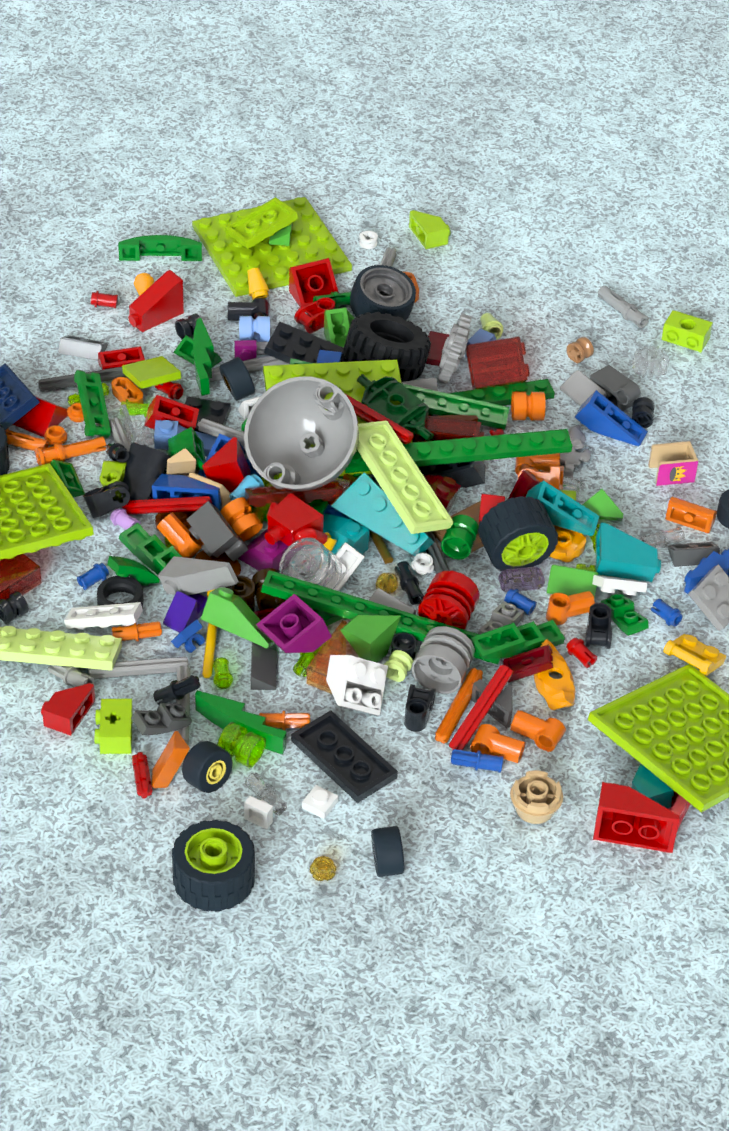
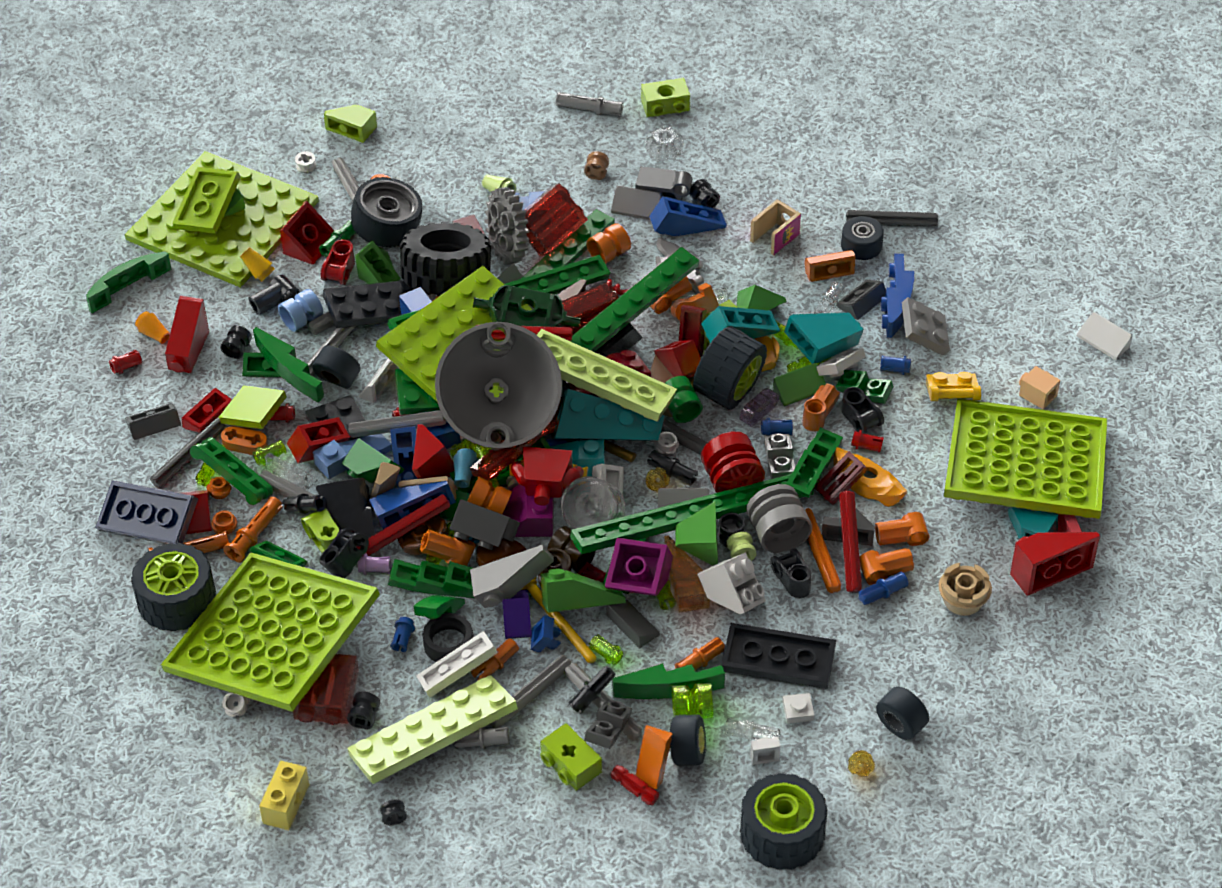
camera: 35 degrees left, 5 degrees up
(68, 708) = (513, 770): red slope -> none
(245, 349) = (312, 336): magenta plate -> none

